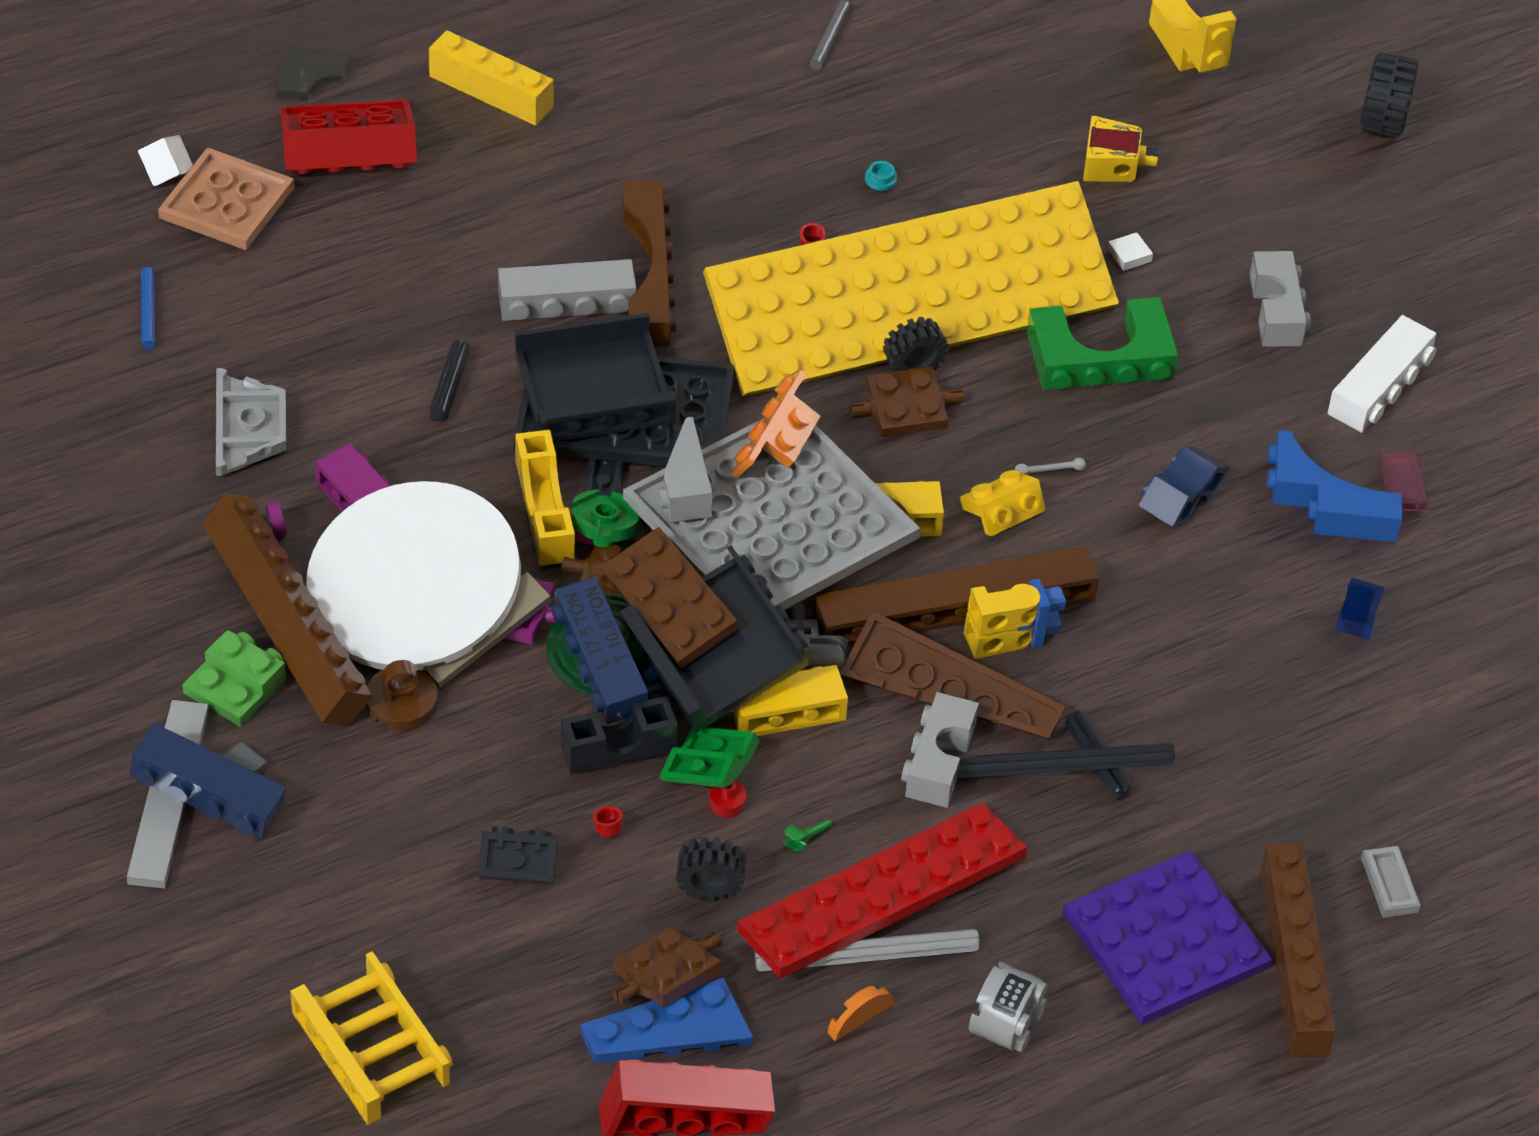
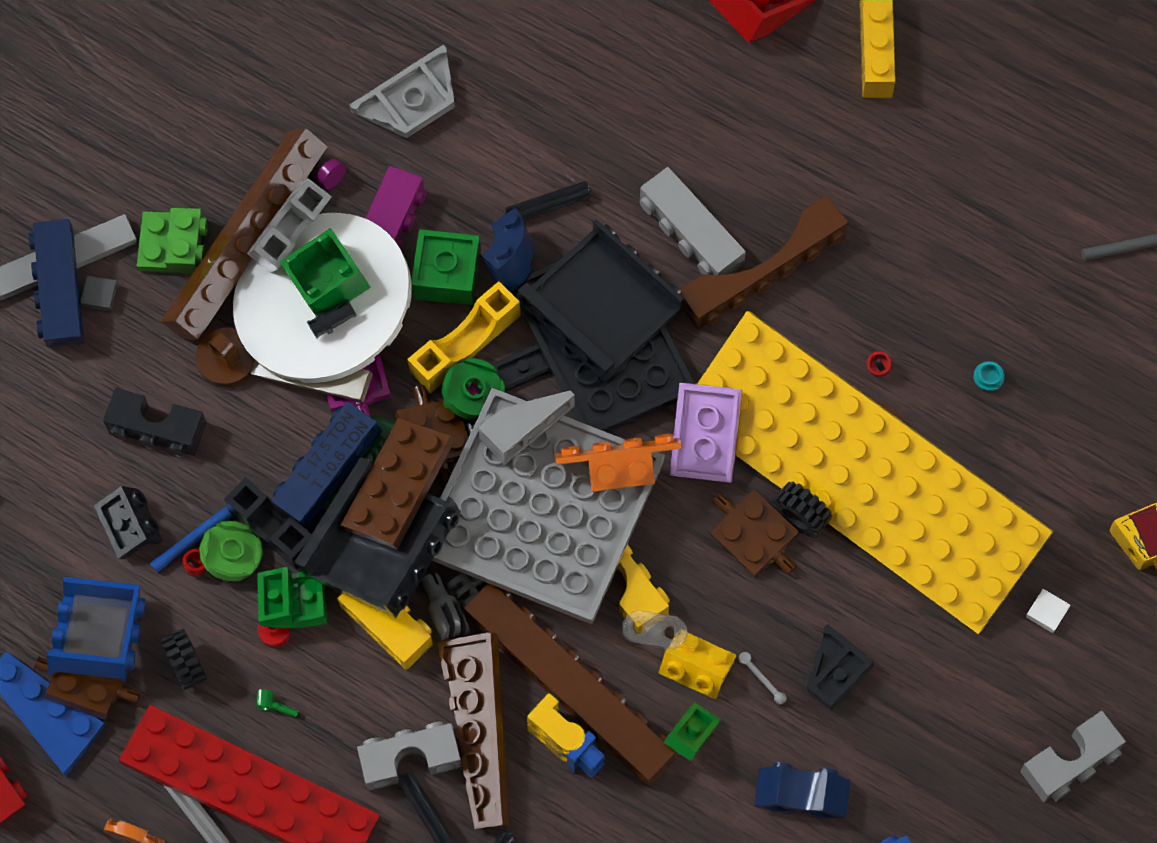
camera: 65 degrees right, 20 degrees up
(330, 573) = (288, 224): none -> light grey arch
(403, 545) = (324, 273): none -> green container
(407, 800) = (177, 433): none -> black arch
(453, 568) = (330, 319): none -> black pin
(463, 462) = (446, 267): none -> green container
(483, 415) = (510, 252): none -> dark blue brick
(577, 818) = (189, 541): none -> blue bar
(619, 787) = (231, 551): none -> bright green tile
(622, 924) = (96, 628): none -> window
(777, 353) = (708, 432): none -> lavender tile
(958, 496) = (653, 629): none -> clear plate
(1067, 363) = (933, 687): green arch -> none
(1073, 529) = (692, 731): none -> green plate
(1080, 409) = (836, 668): none -> black wing

